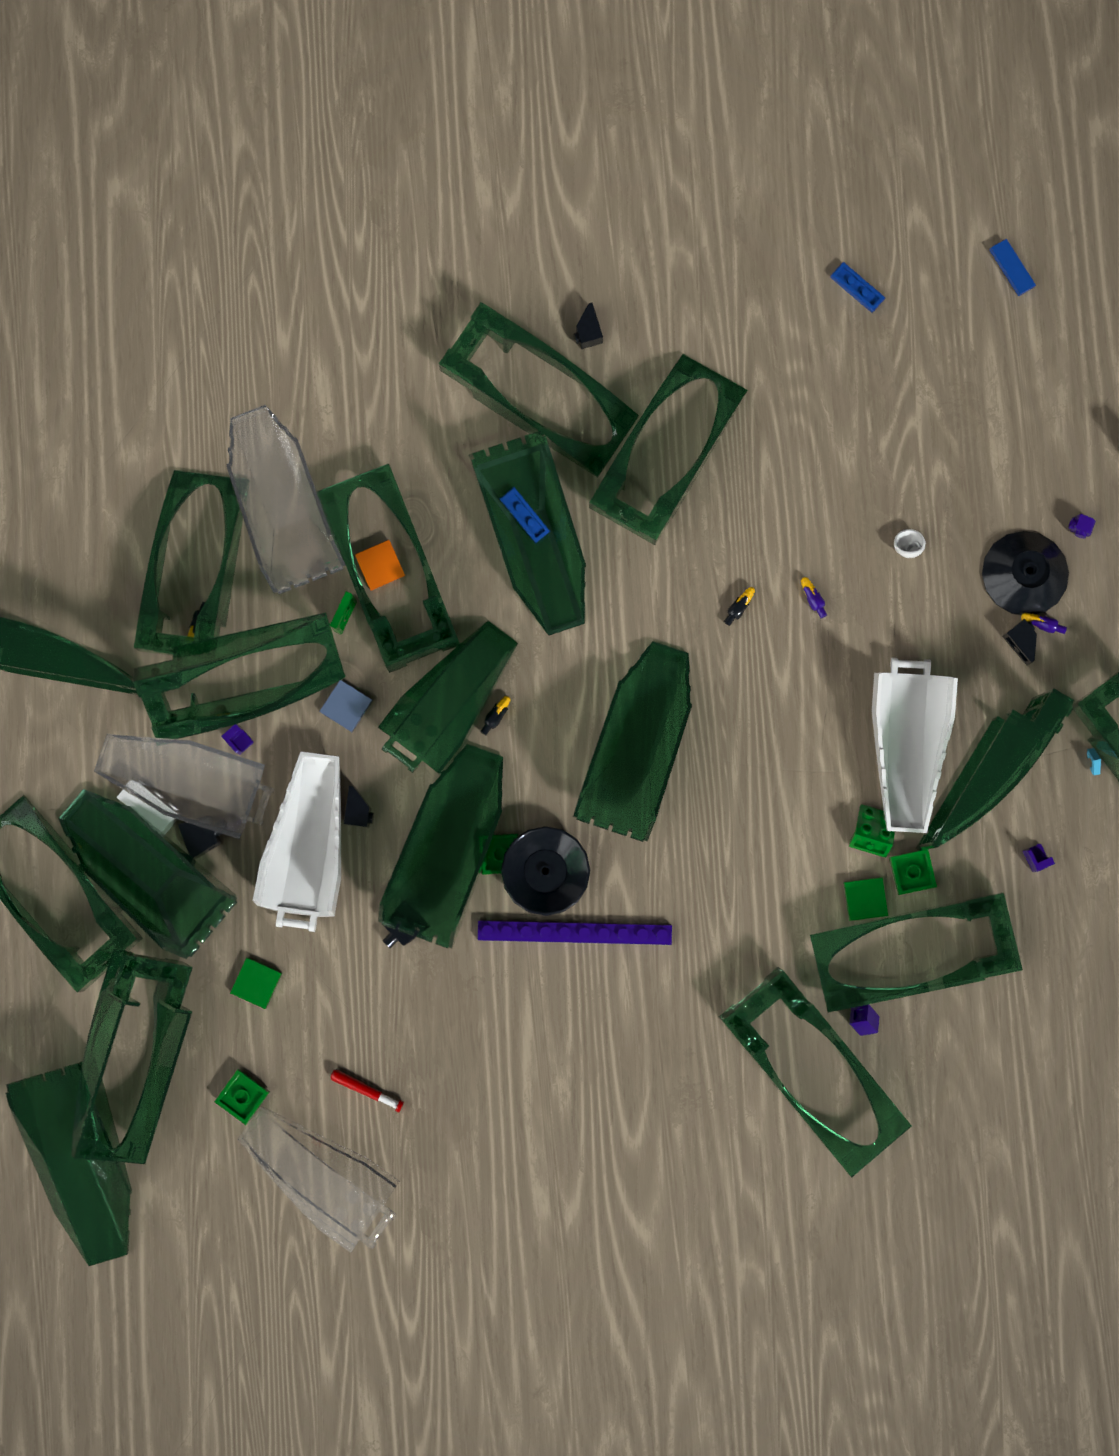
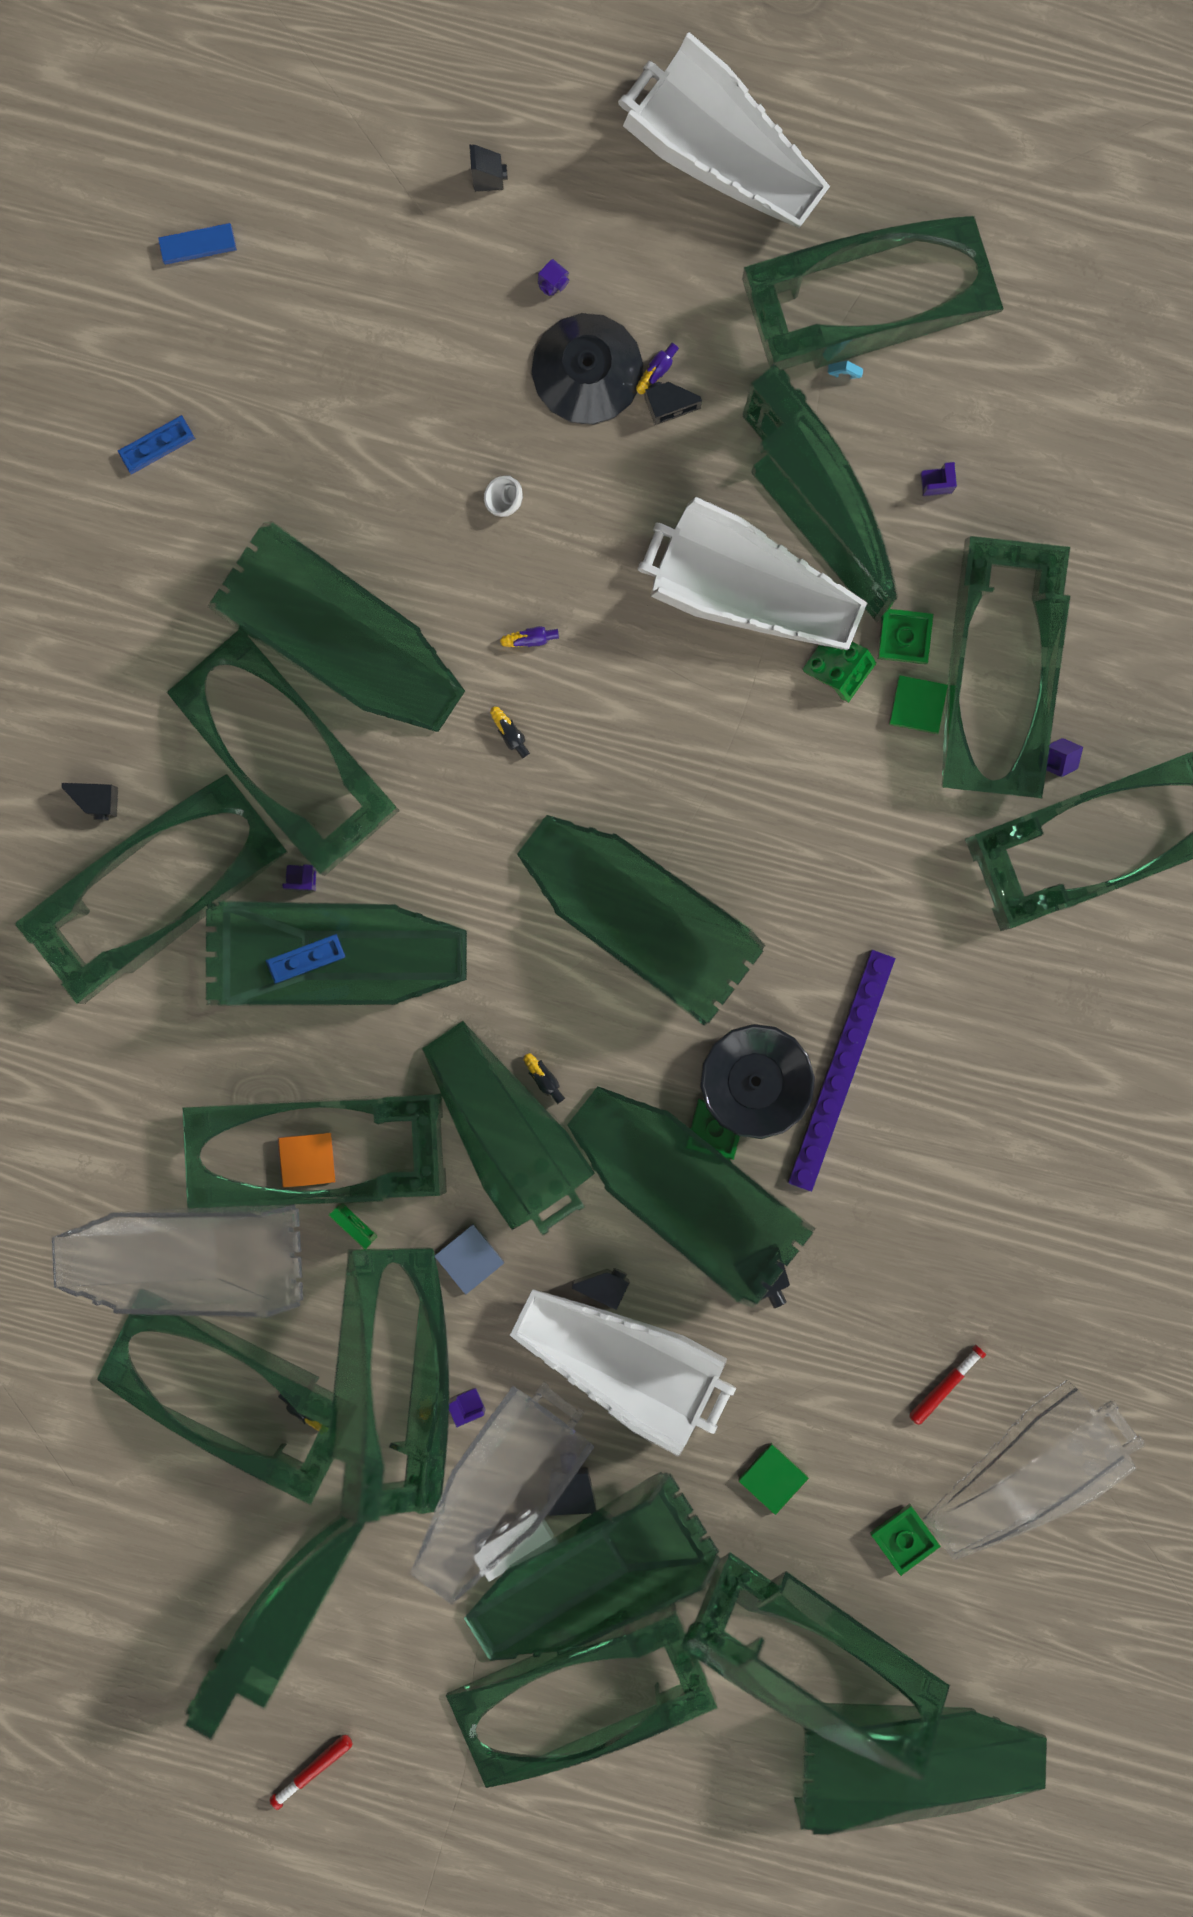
camera: 75 degrees left, 5 degrees up
(581, 492) = (300, 878): none -> dark purple panel
(767, 458) = (336, 631): none -> clear green windscreen

